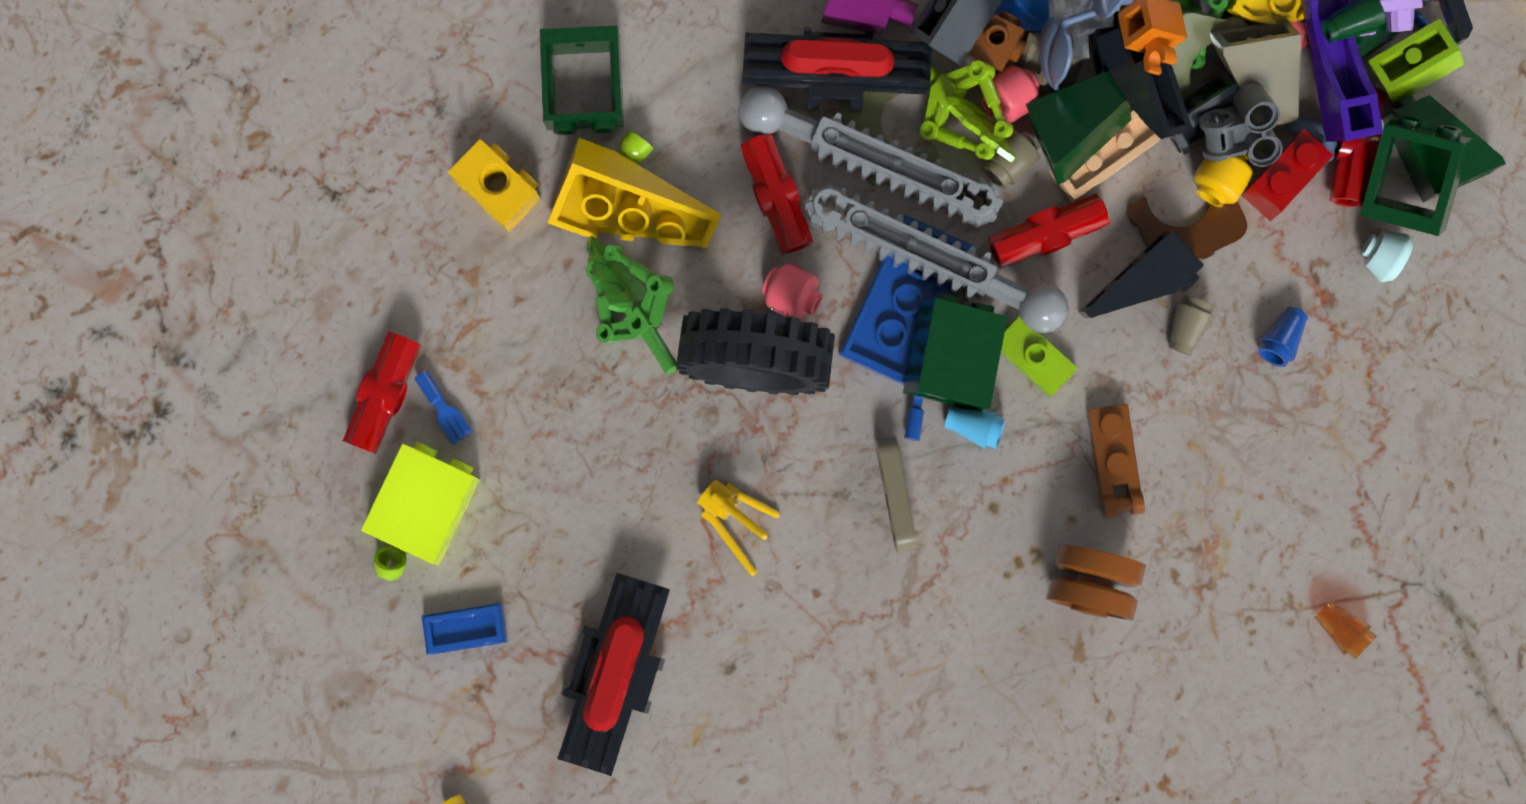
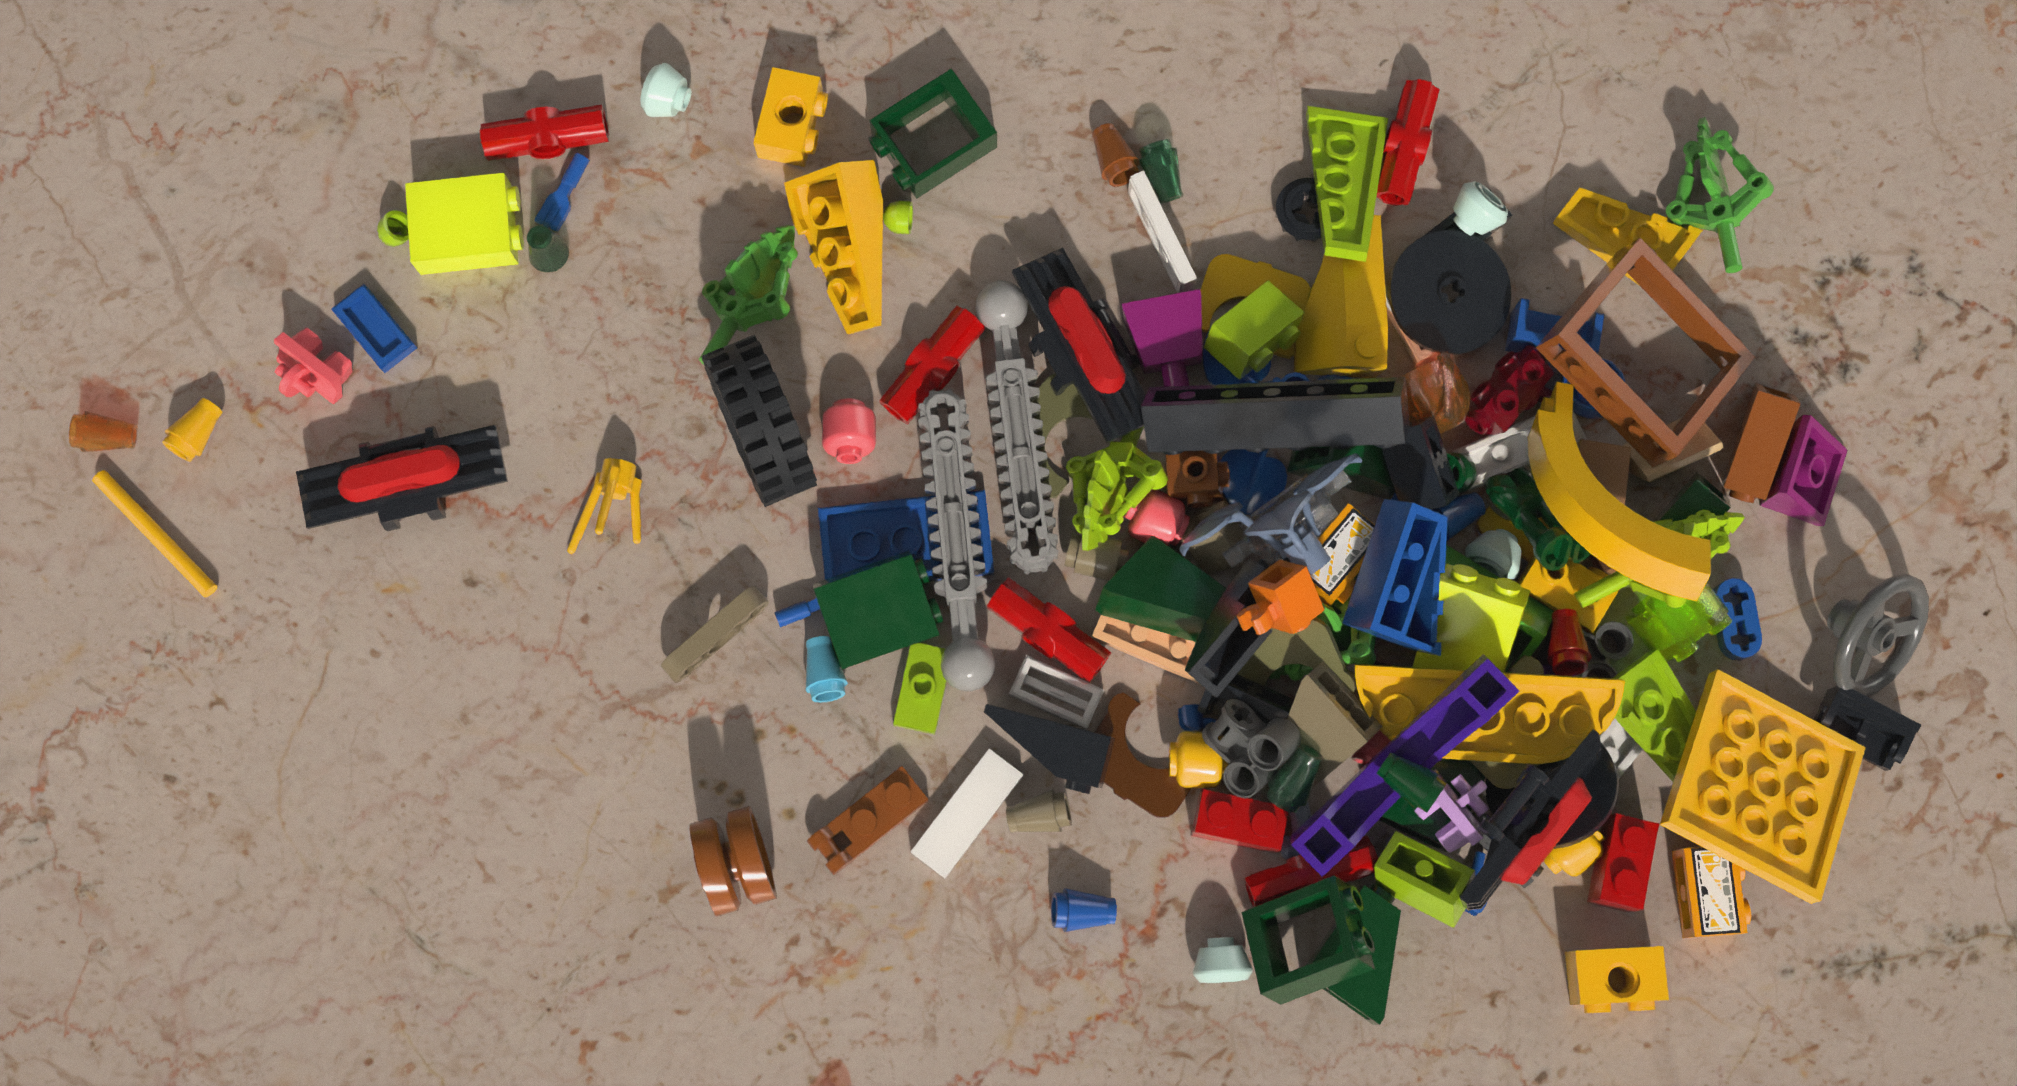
camera: 60 degrees right, 5 degrees down
(410, 273) = (664, 92): none -> light aqua cone
(470, 705) = (305, 372): none -> coral hips
(494, 455) = (546, 249): none -> clear green cone
(1072, 275) = (1088, 707): none -> white tile
(1155, 381) = (967, 813): none -> white tile
(1182, 164) = (1191, 719): none -> blue hand
(1294, 114) = (1295, 779): none -> clear green cone

